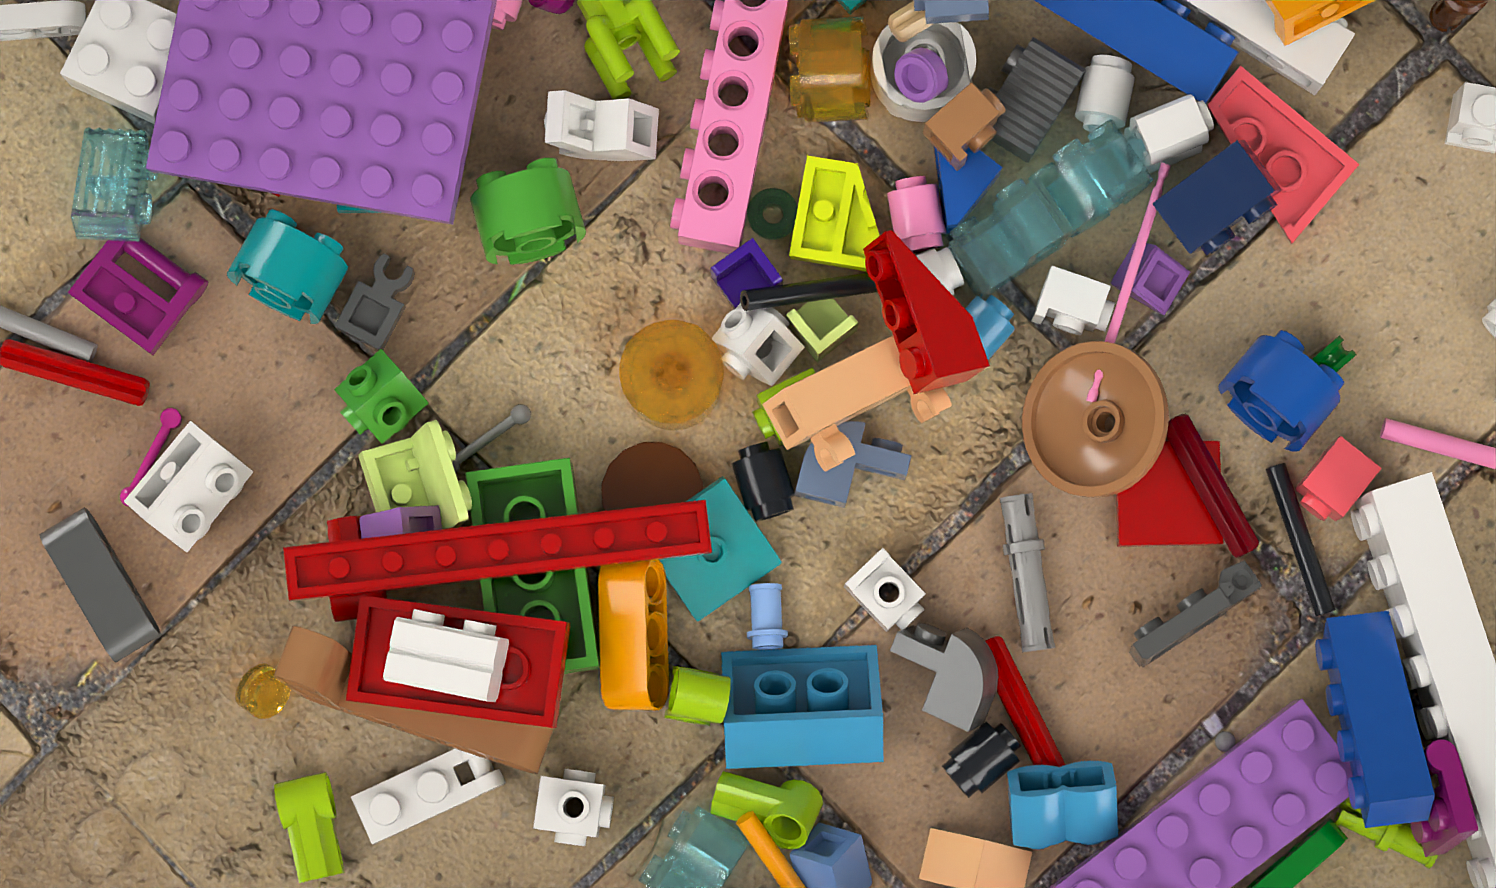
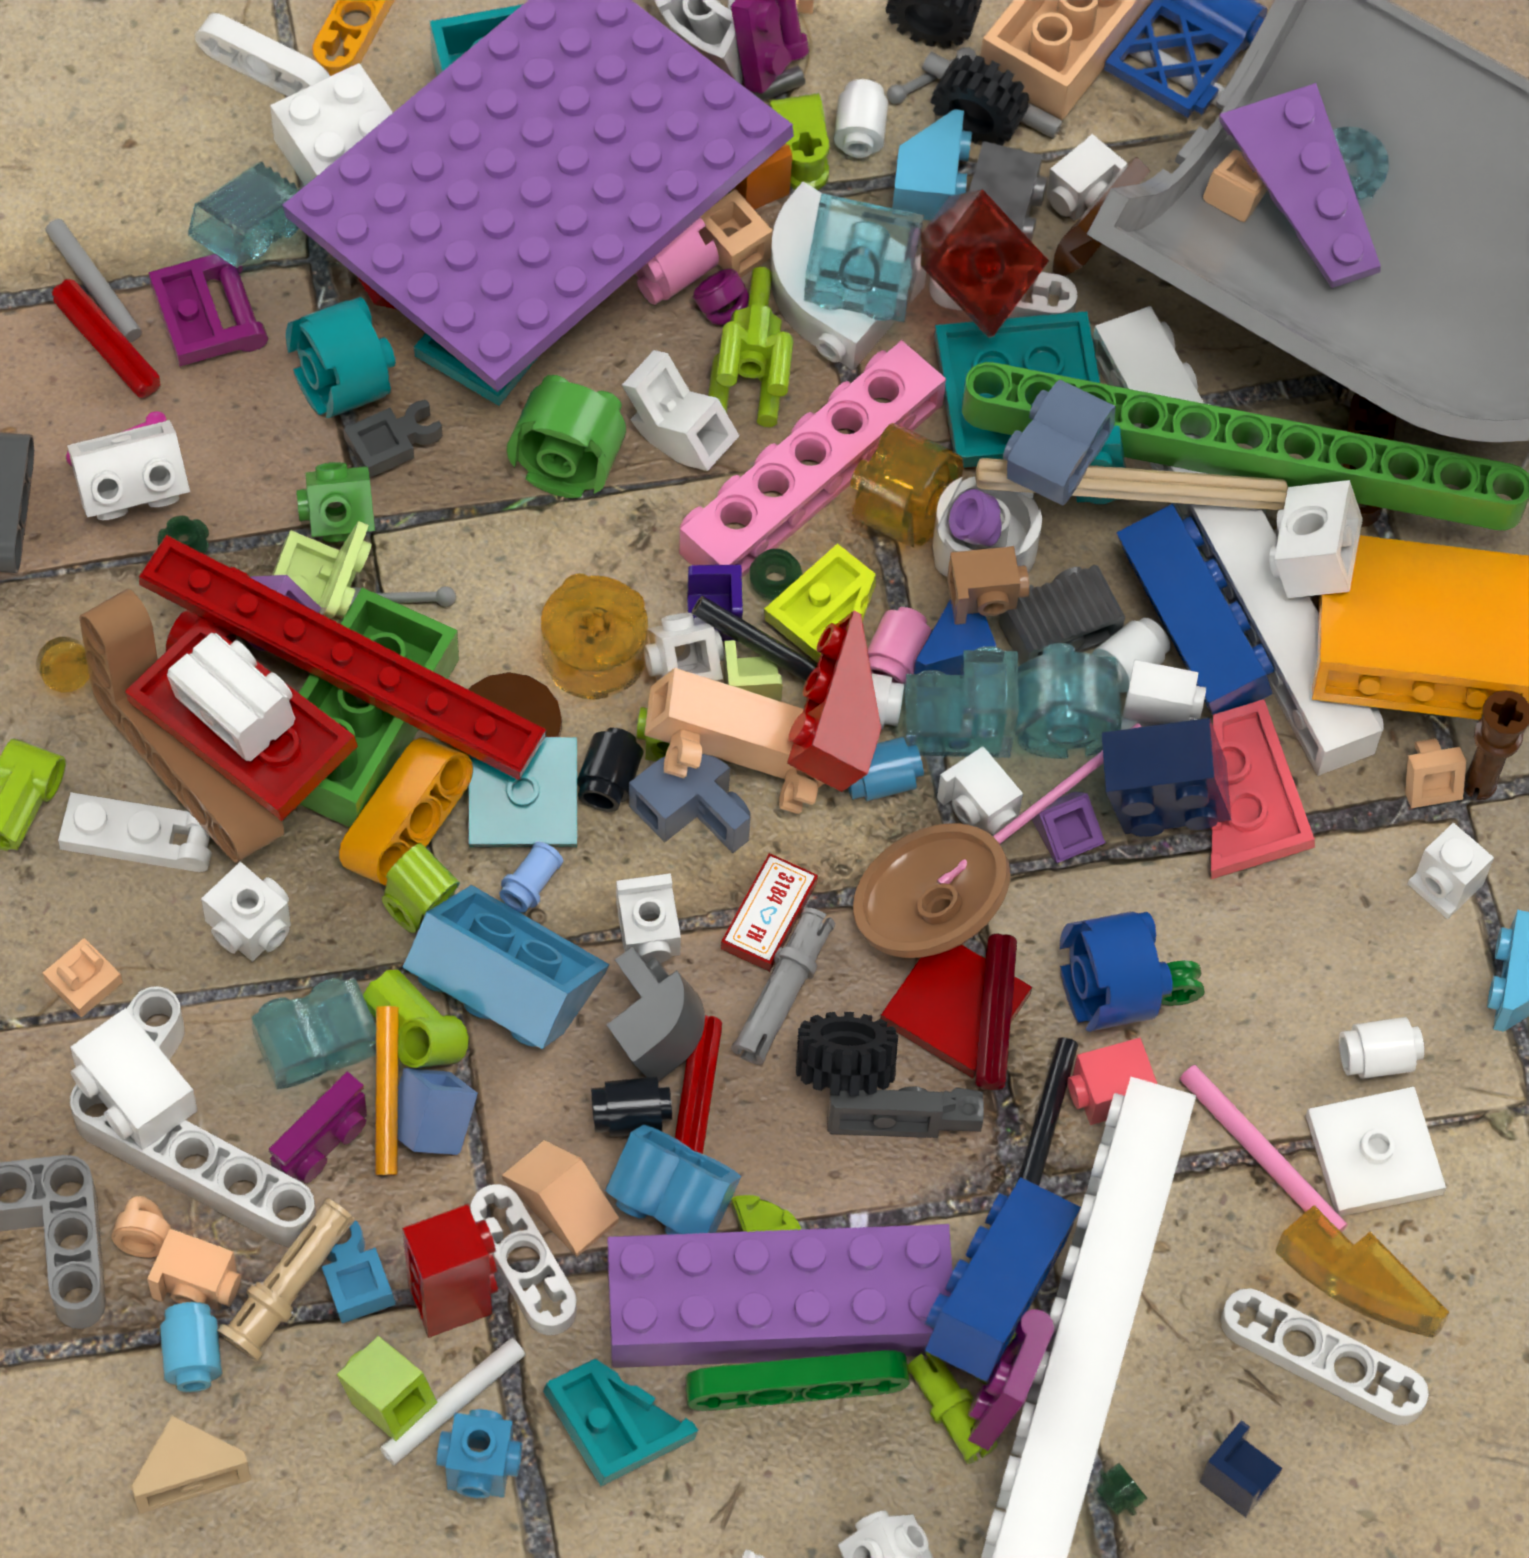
camera: 30 degrees right, 20 degrees down
(288, 511) = (194, 529): none -> clear green plate
(971, 514) = (769, 912): none -> white tile
(1133, 624) = (846, 1053): none -> black tyre
(1145, 779) = (761, 1215): none -> lime tile
(1412, 37) = (1434, 774): none -> light nougat tile

